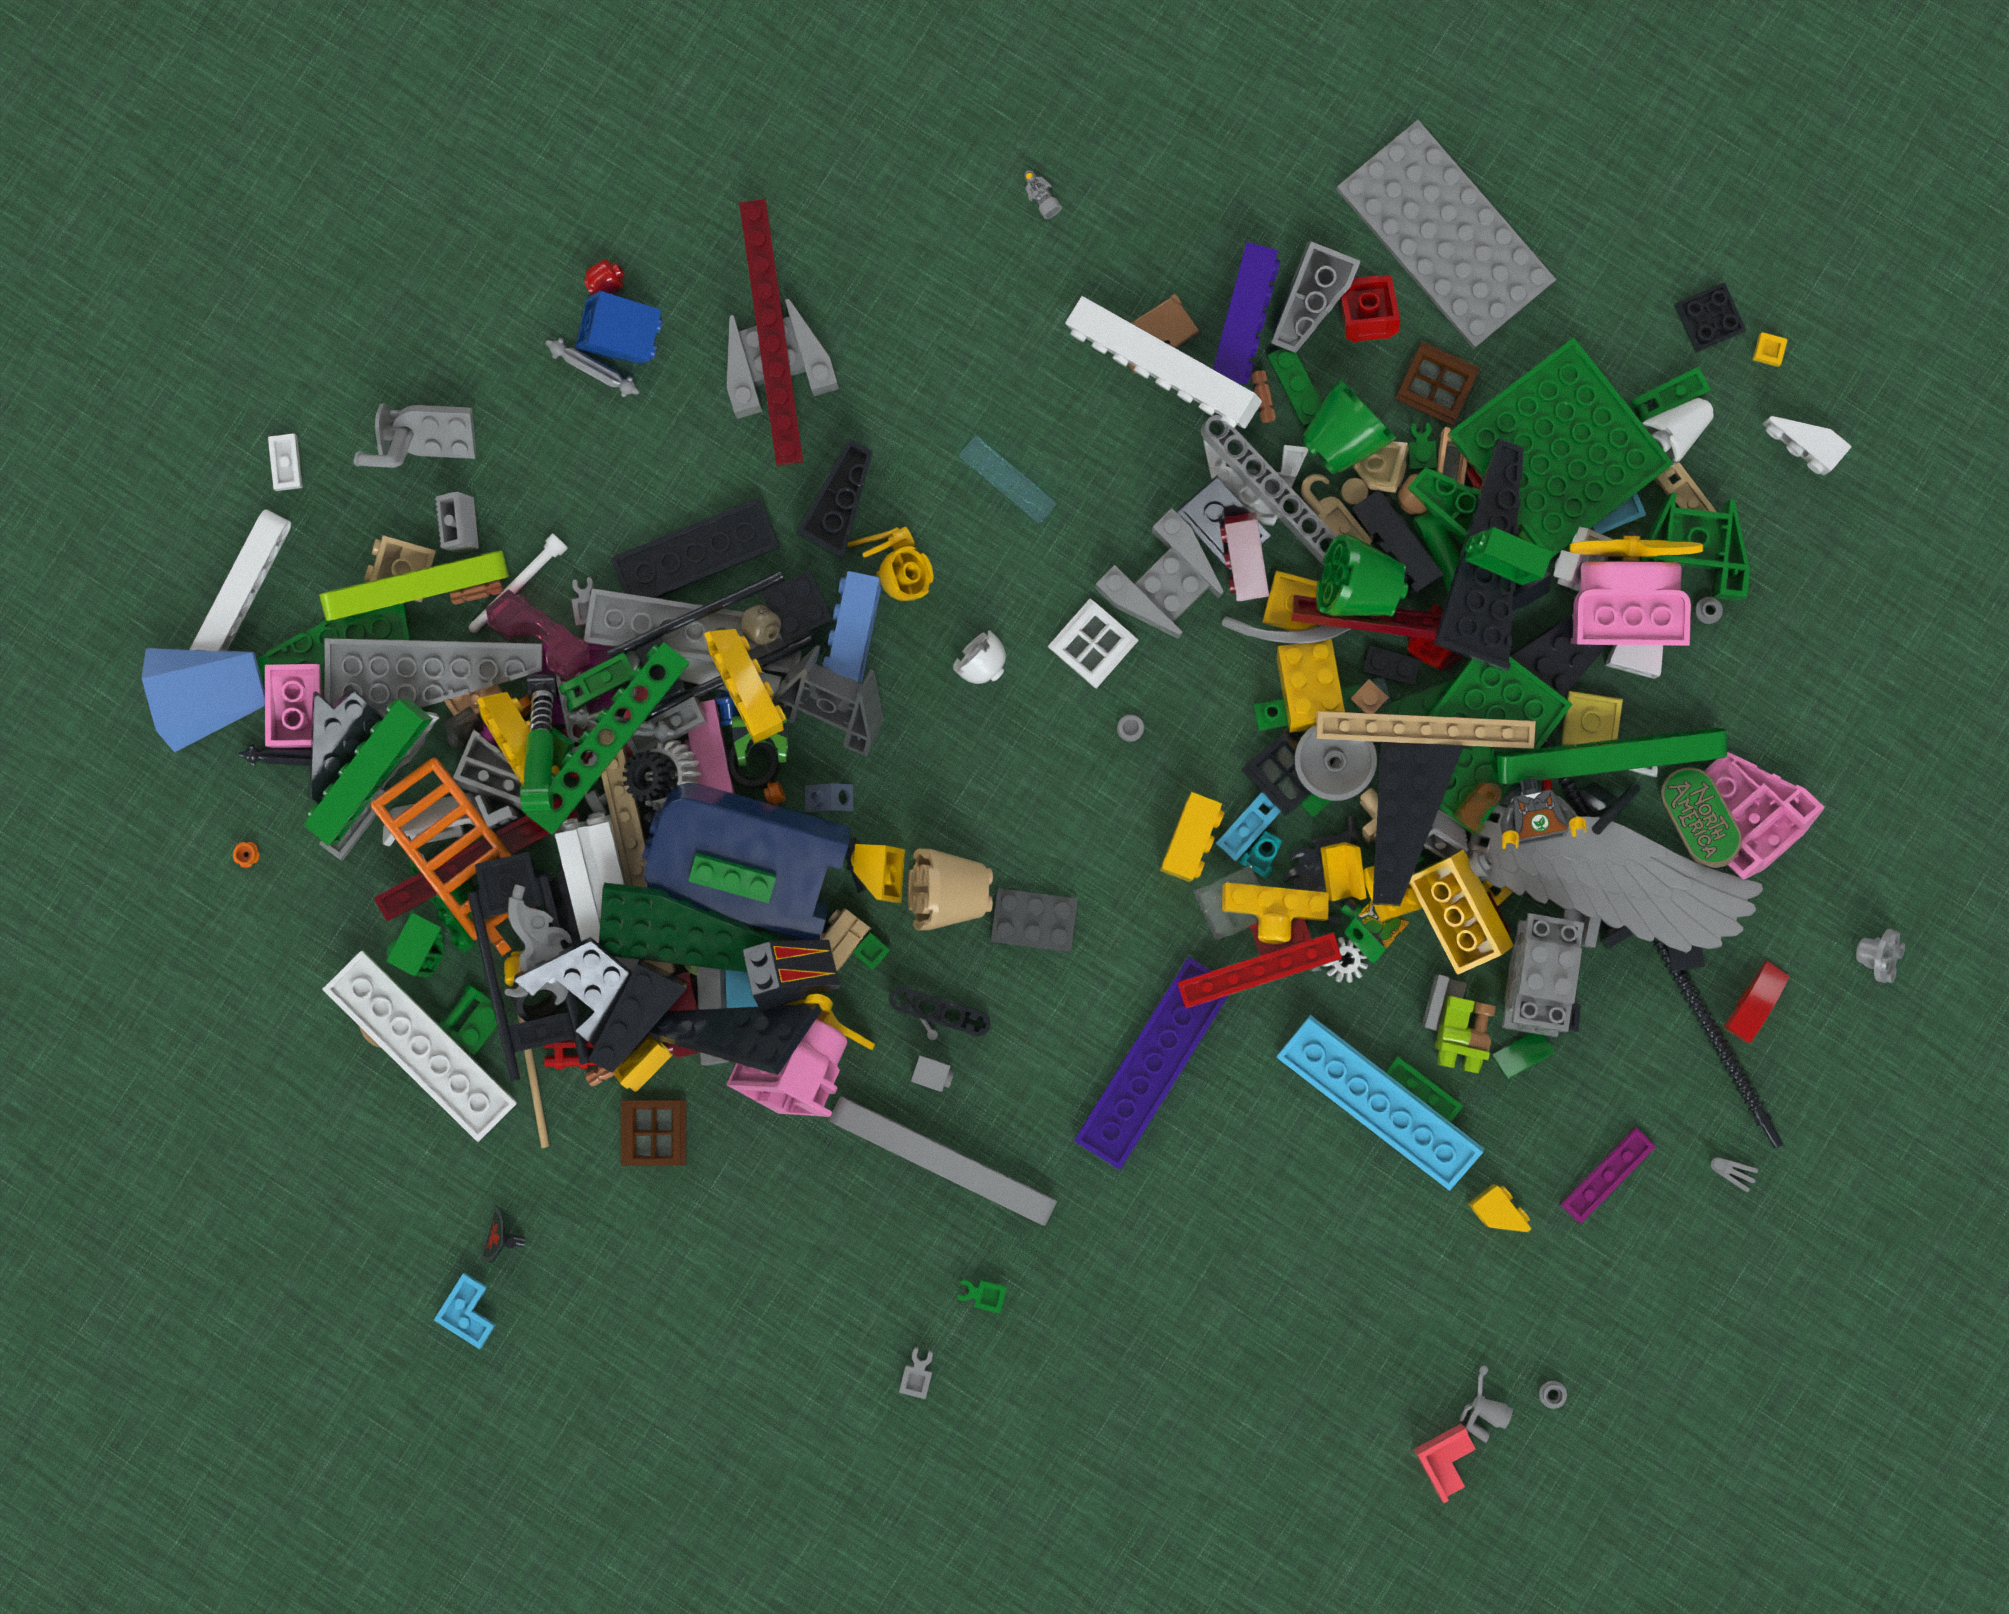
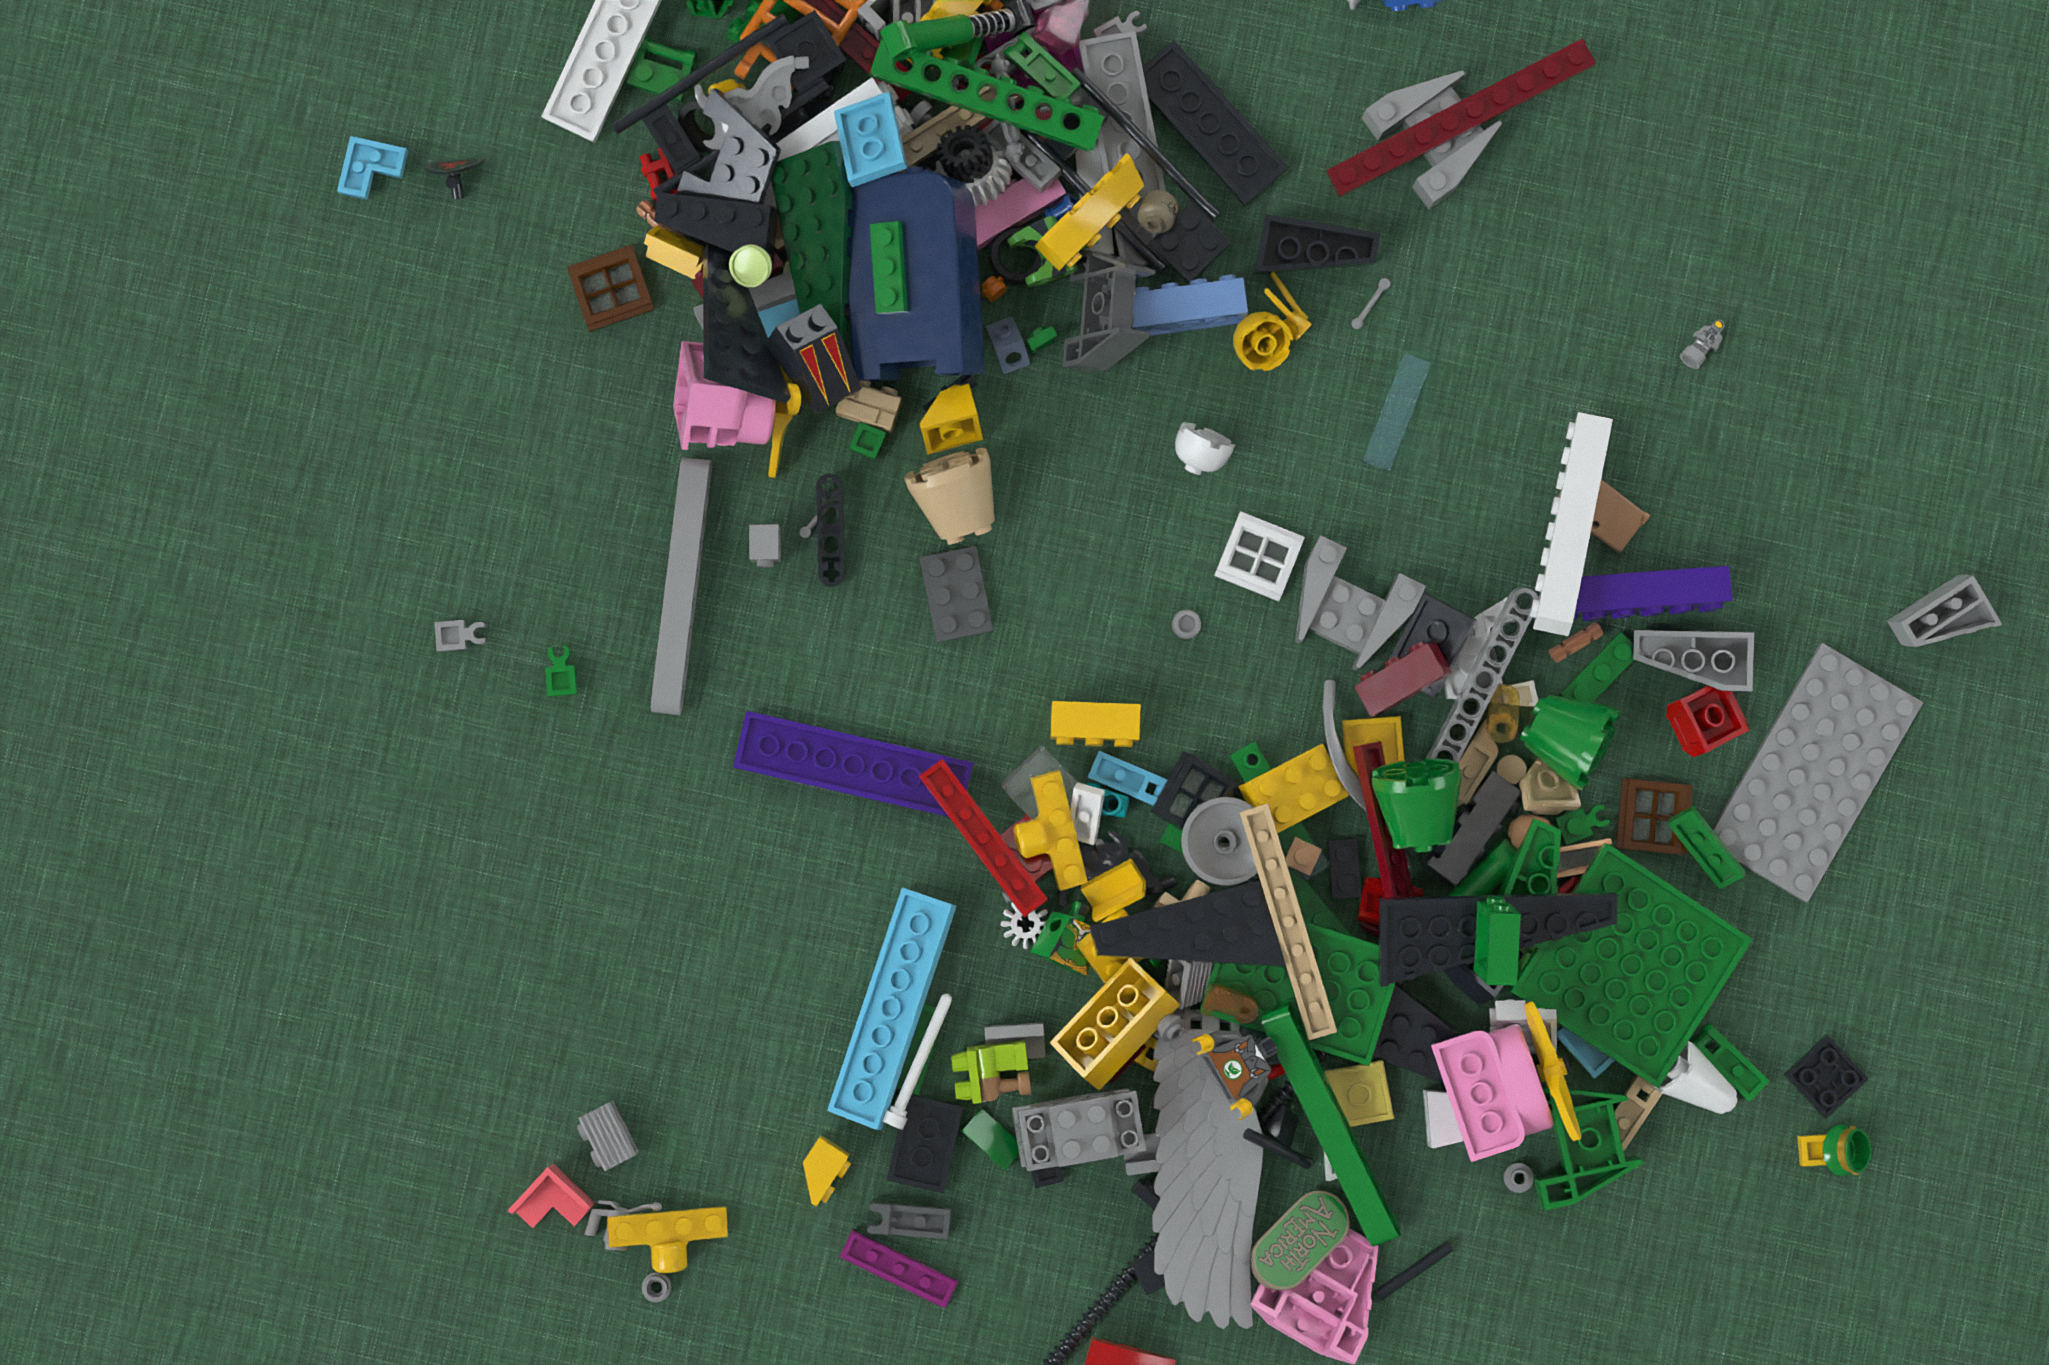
camera: 65 degrees right, 0 degrees up
(536, 1095) = (606, 159): tan axle -> none
(612, 854) = (870, 139): none -> medium azure plate
(684, 1000) = (750, 265): none -> yellowish green piece
(834, 766) = (1041, 338): none -> green plate
(892, 452) = (1383, 285): none -> light grey hinge
(1267, 872) = (1086, 812): none -> white plate
(1306, 479) = (1504, 714): none -> clear yellow plate
(1348, 73) = (1944, 613): none -> light grey wedge
(1406, 1392) = (607, 1136): none -> light grey brick
(1475, 1130) = (896, 1114): none -> white piece
(1480, 348) = (1706, 847): none -> green plate
(1506, 1114) = (925, 1144): none -> black plate
(1510, 1368) = (667, 1233): none -> yellow plate
(1569, 1150) = (910, 1220): none -> dark grey plate
(1758, 728) = (1414, 1270): none -> black bar
(1779, 322) = (1846, 1150): none -> green piece
(1815, 444) = (1732, 1228): white slope -> none

